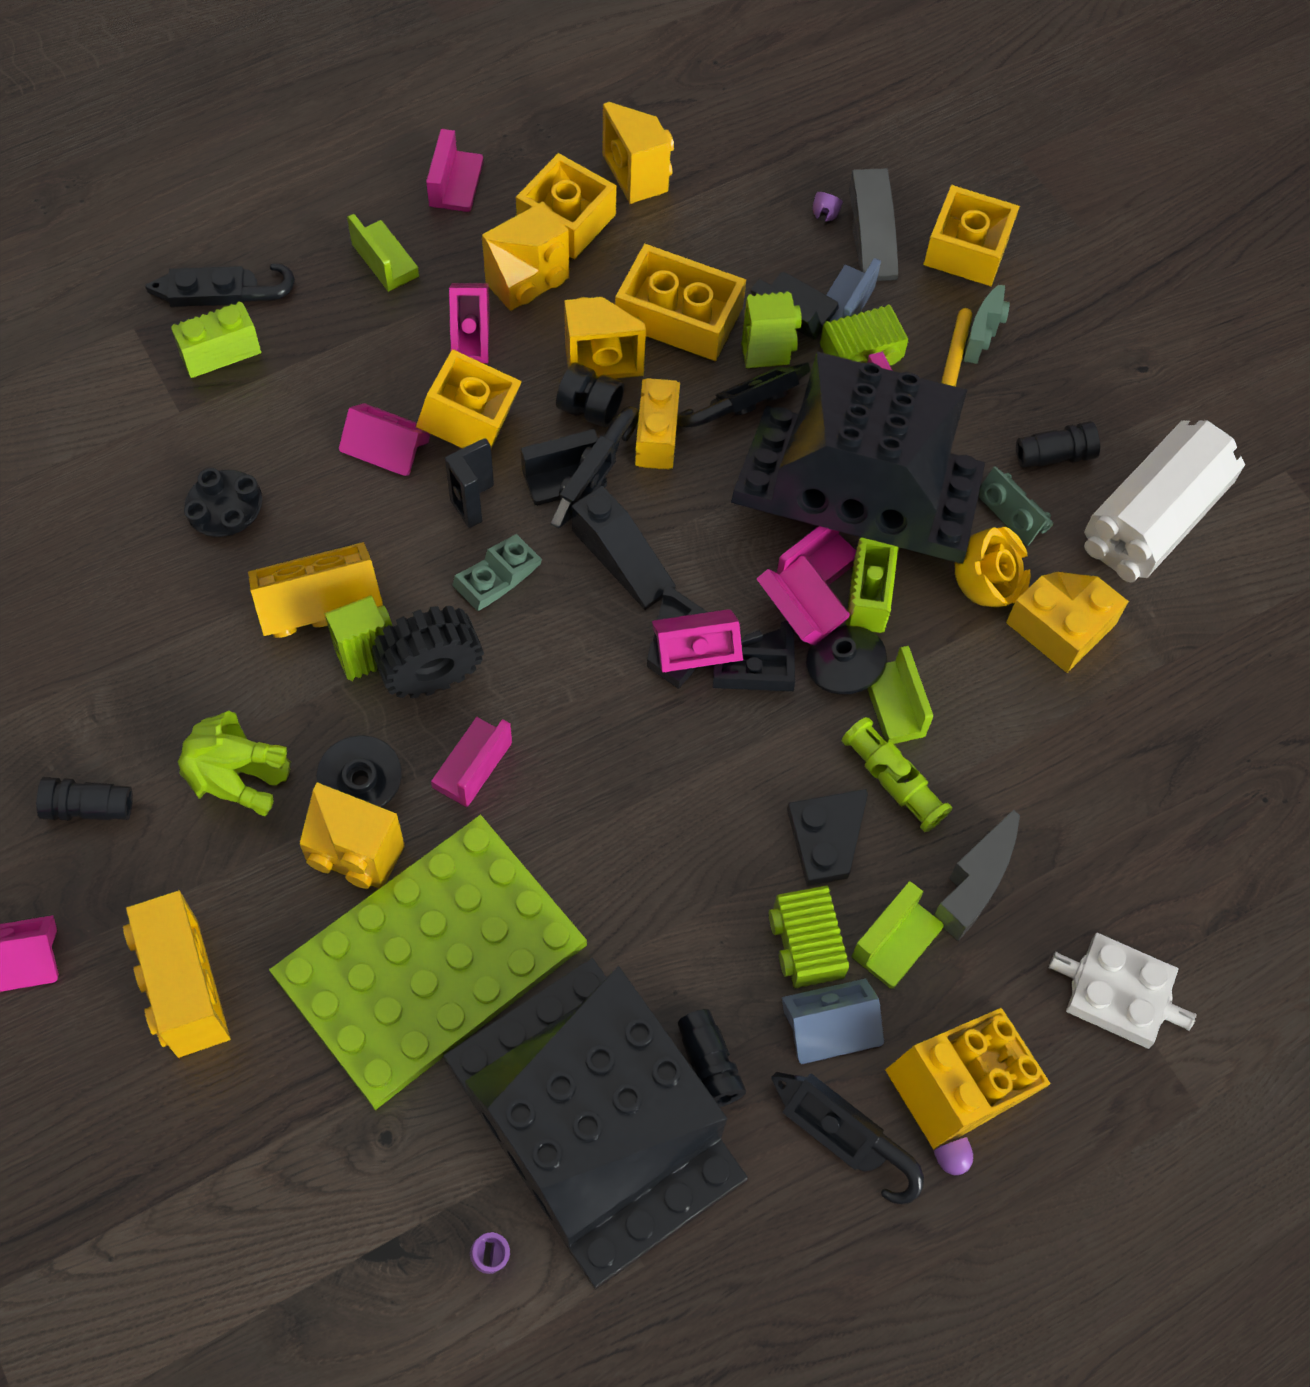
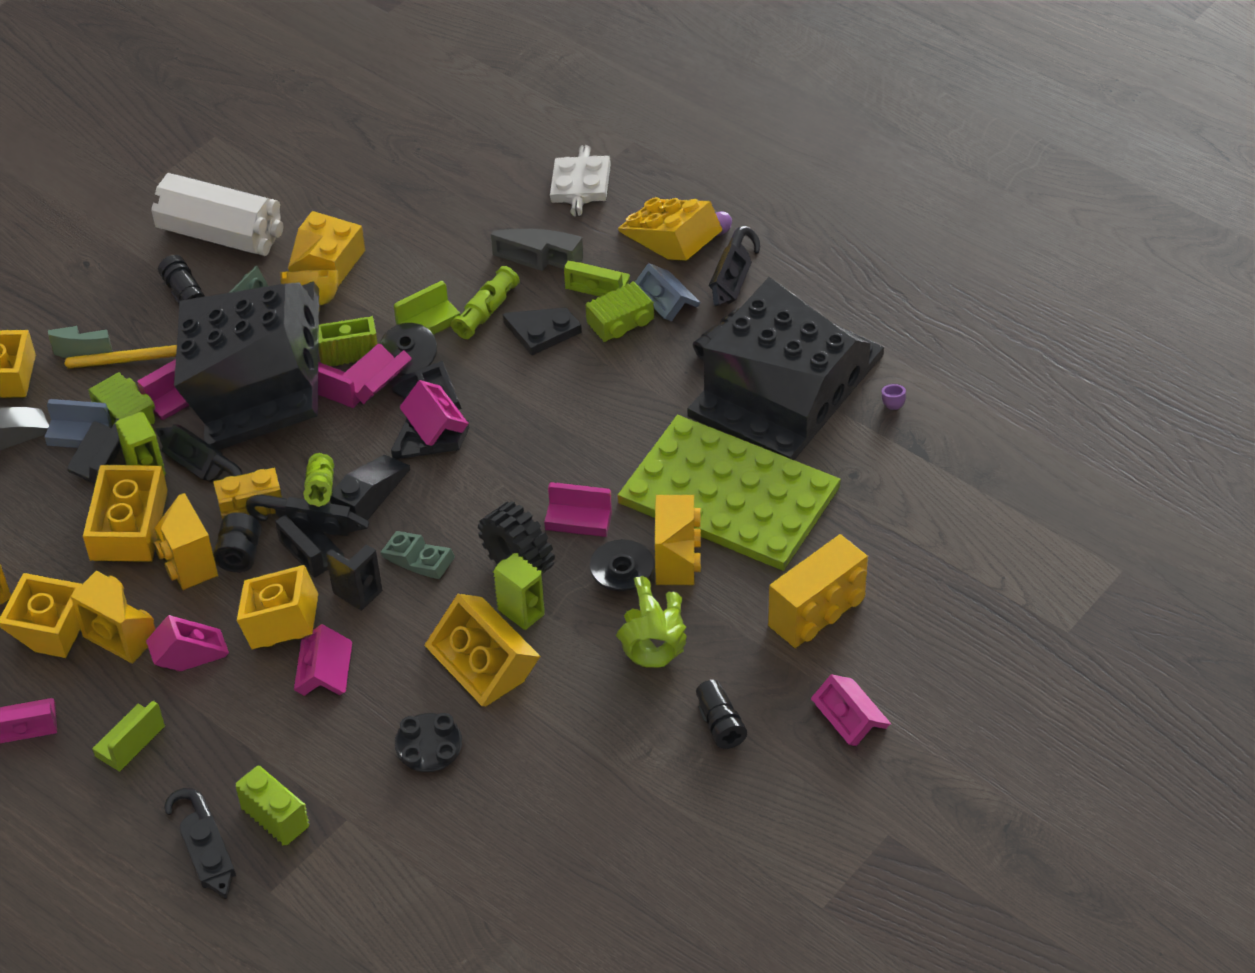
camera: 105 degrees left, 15 degrees down
(633, 482) = (319, 479): none -> lime piece

